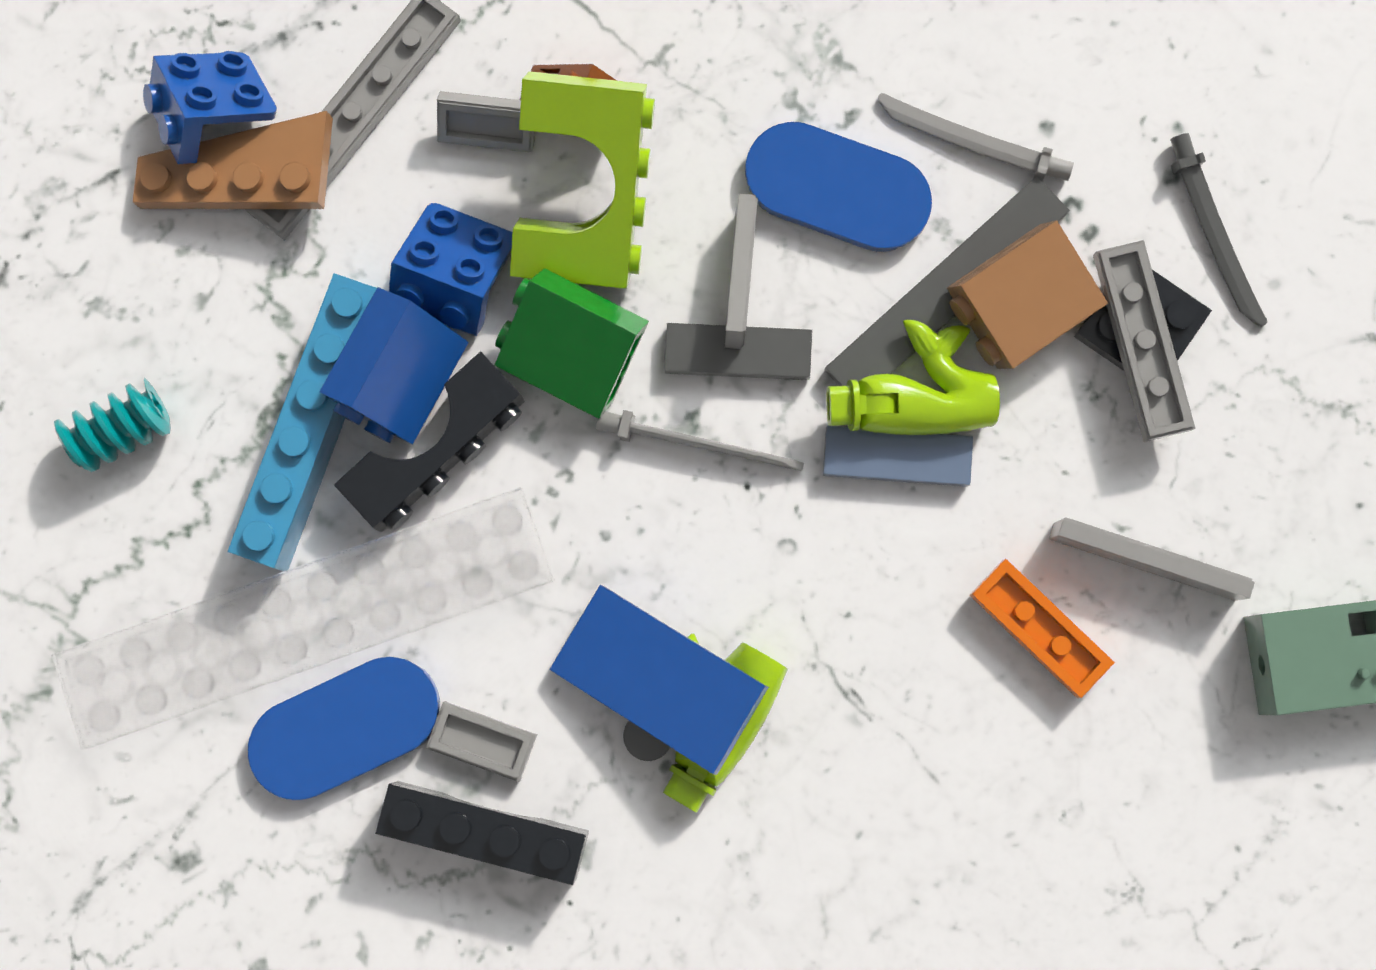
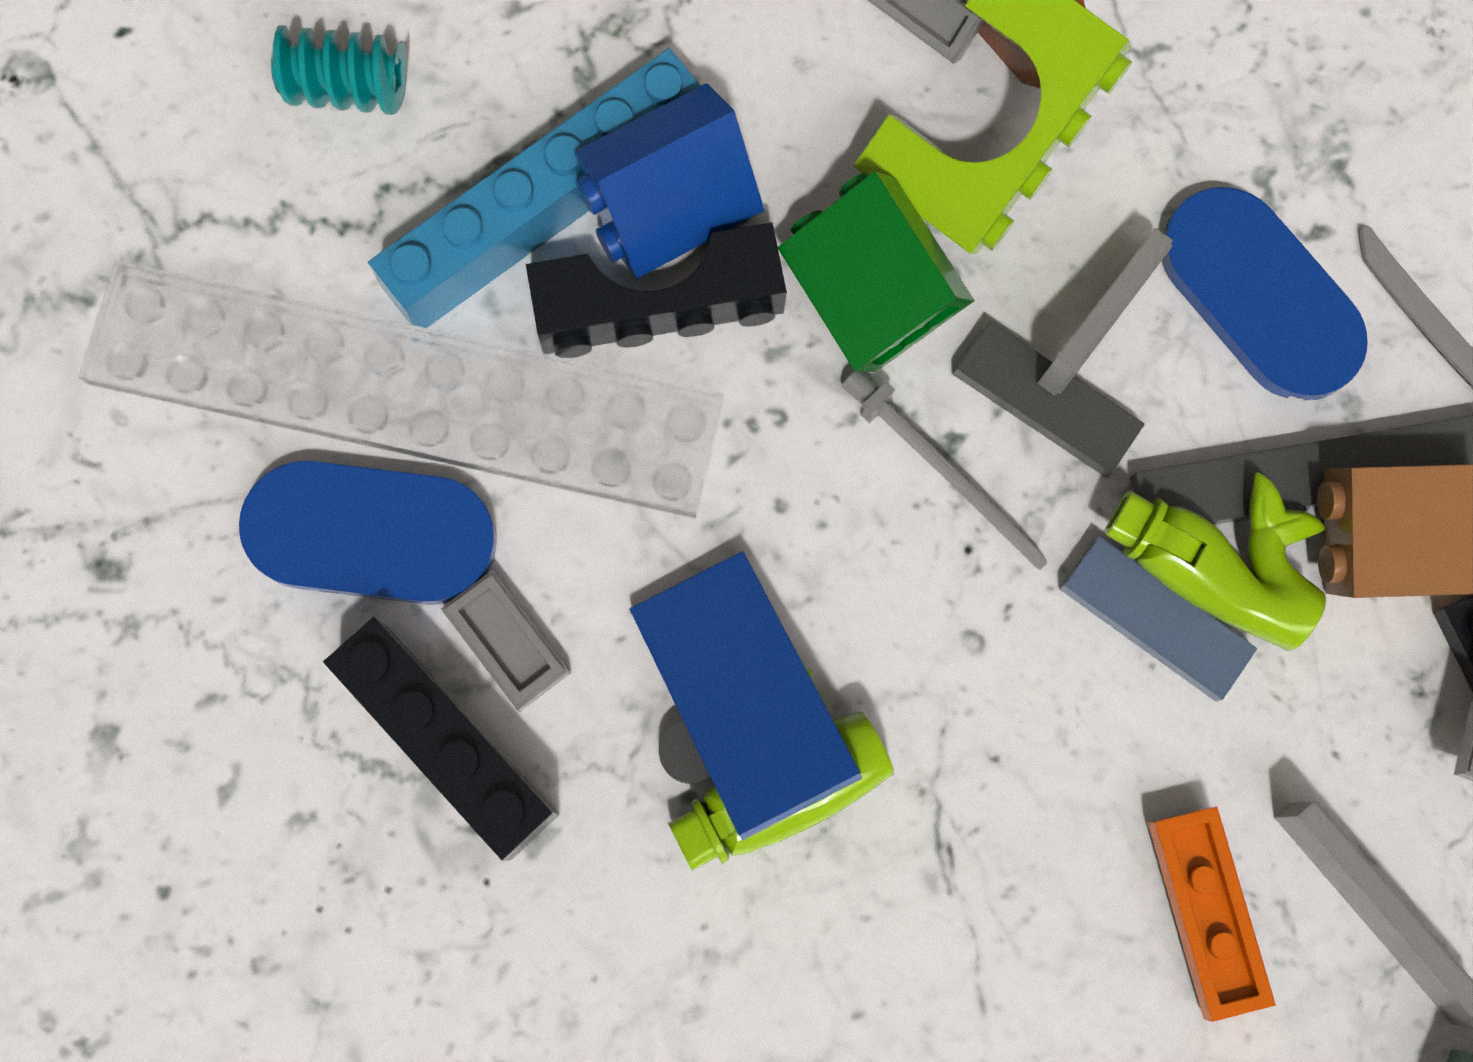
camera: 25 degrees right, 5 degrees down
(450, 266) = (795, 123): blue bracket -> none

